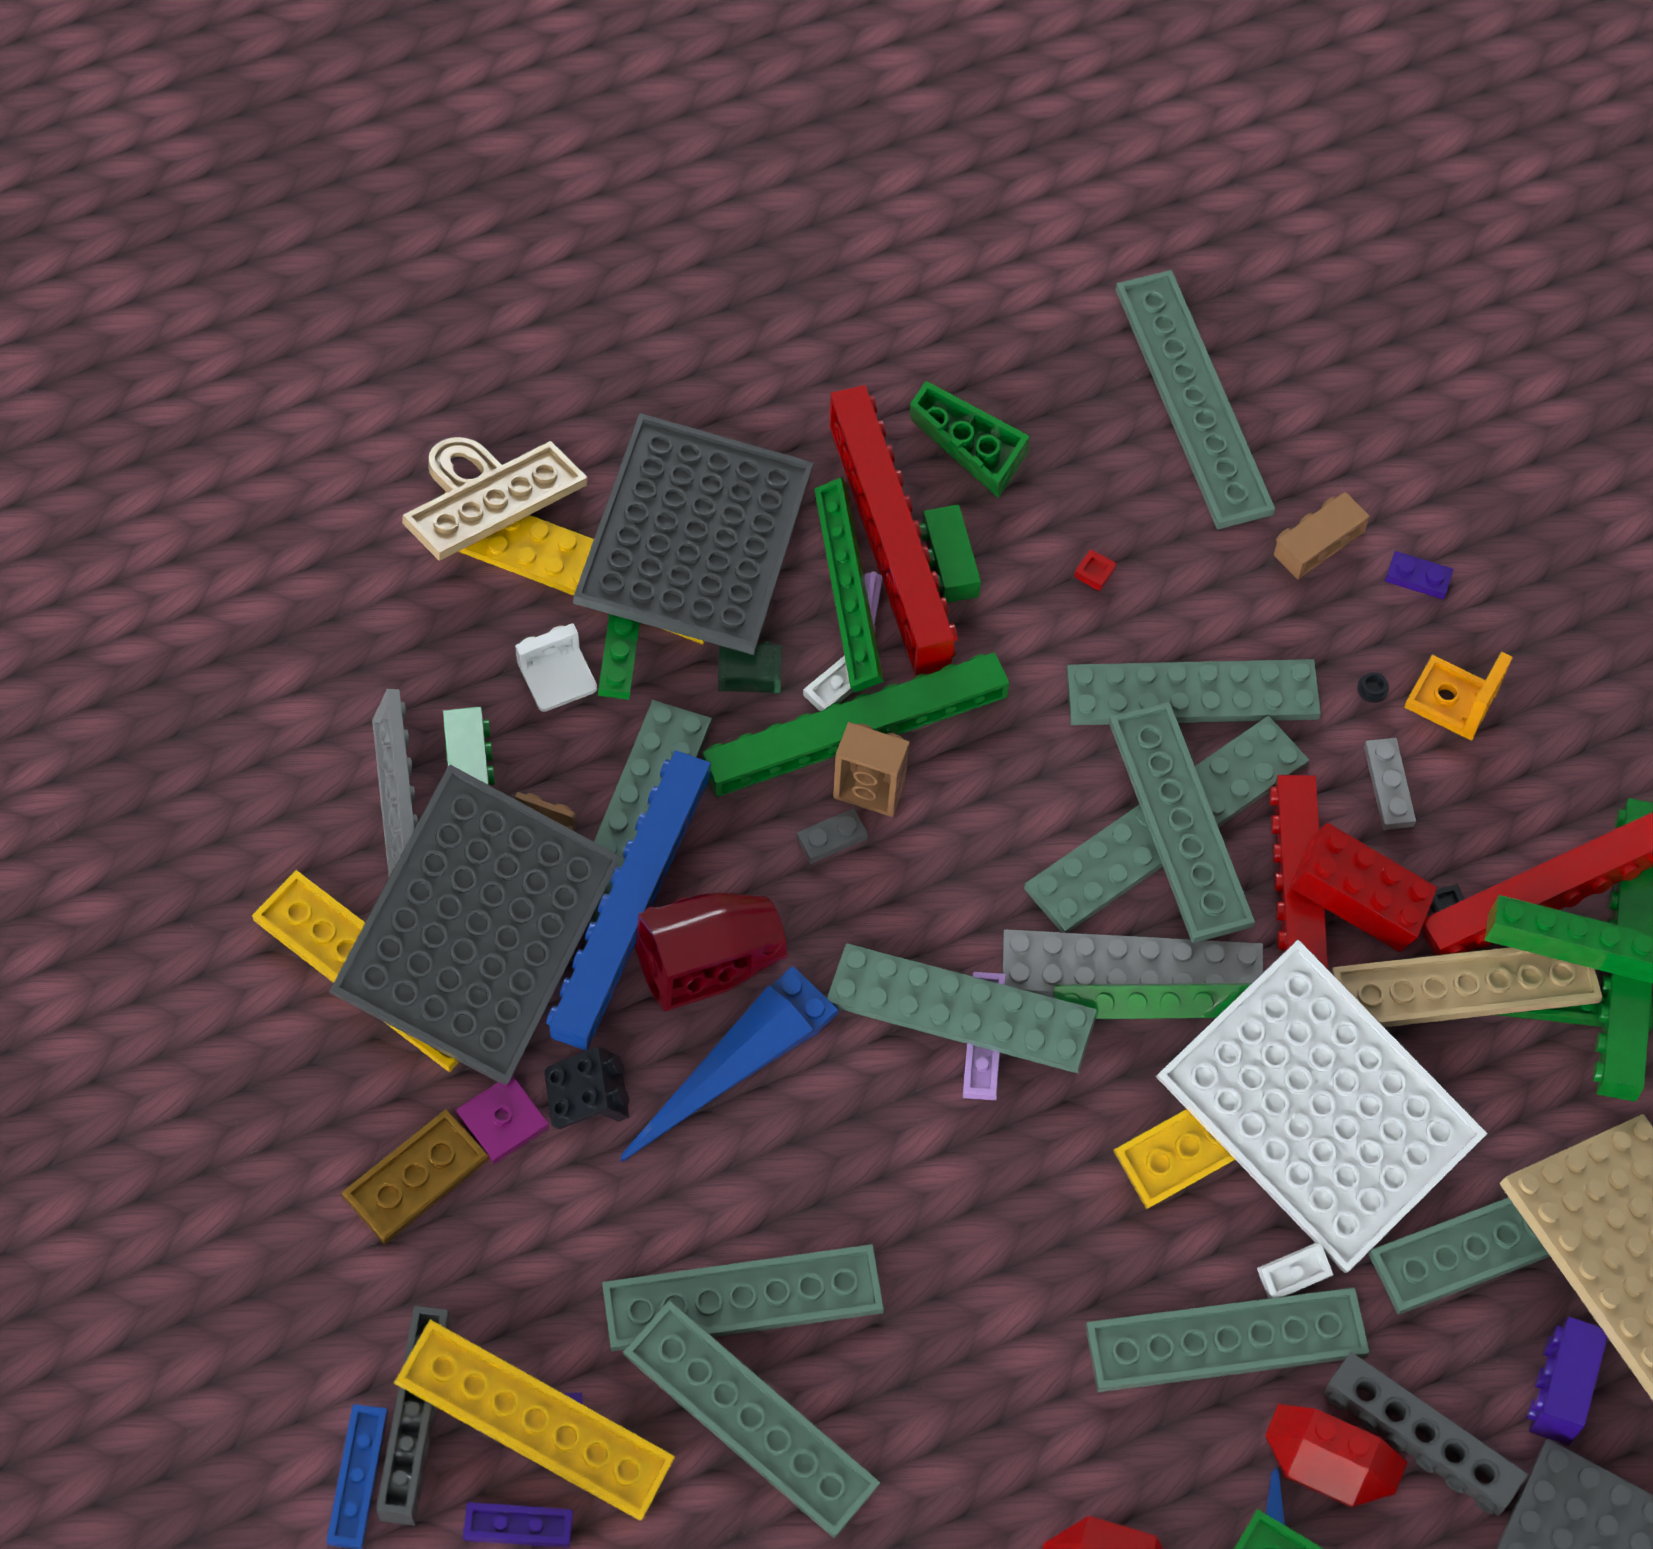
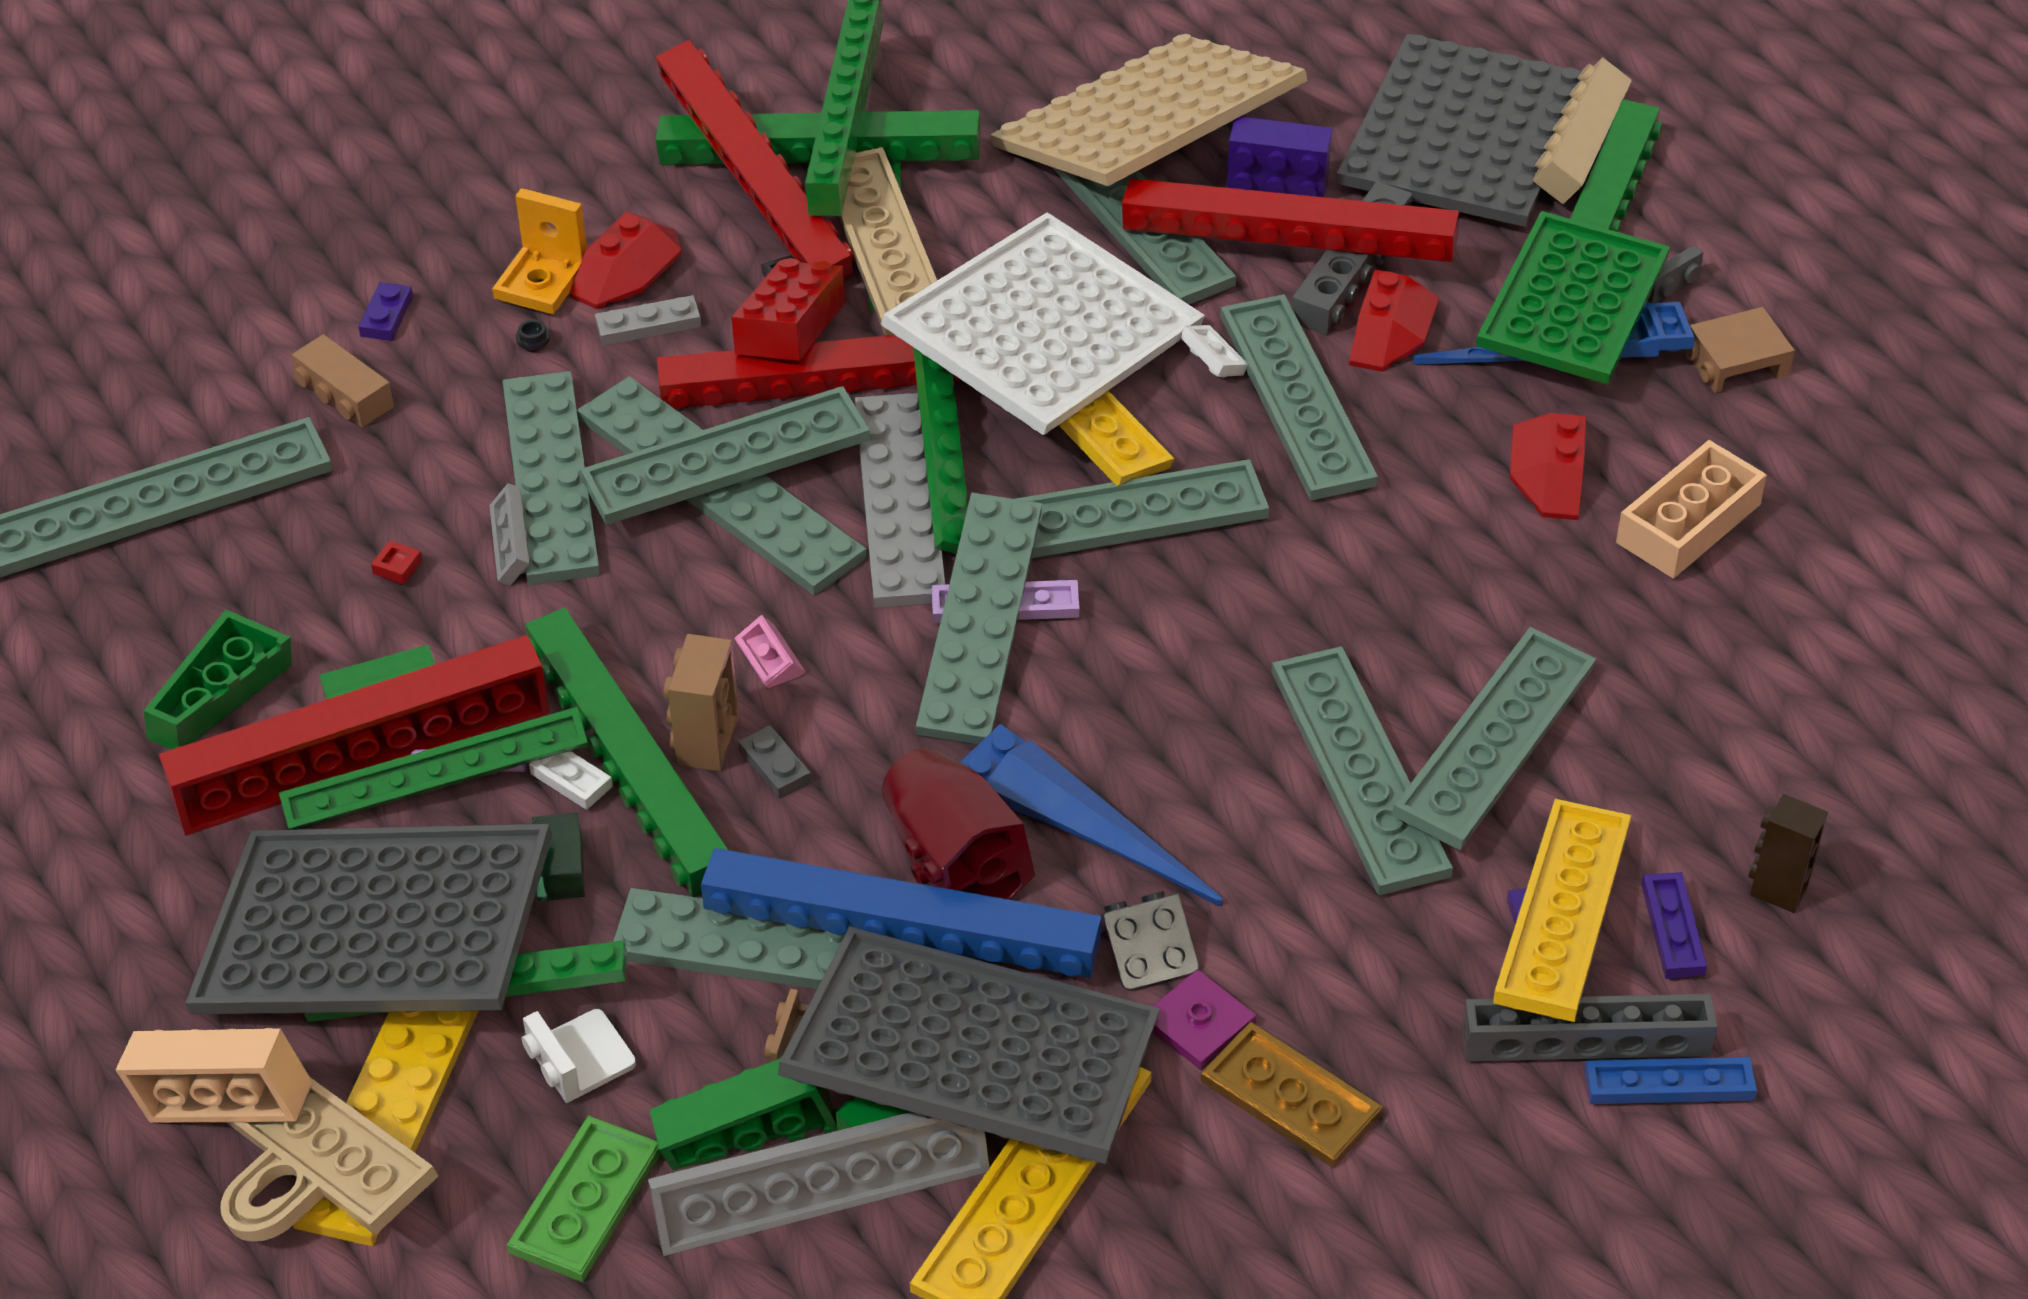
camera: 95 degrees left, 15 degrees down
(429, 668) = (584, 1198): none -> bright green tile
(559, 426) = (214, 1075): none -> light nougat brick
(956, 845) = (769, 653): none -> bright pink slope
(1087, 1169) = (1148, 507): none -> sand green plate
(1115, 654) = (509, 534): none -> light grey plate
(1454, 1368) = (1290, 220): none -> red brick
(1472, 772) = (625, 260): none -> red wedge

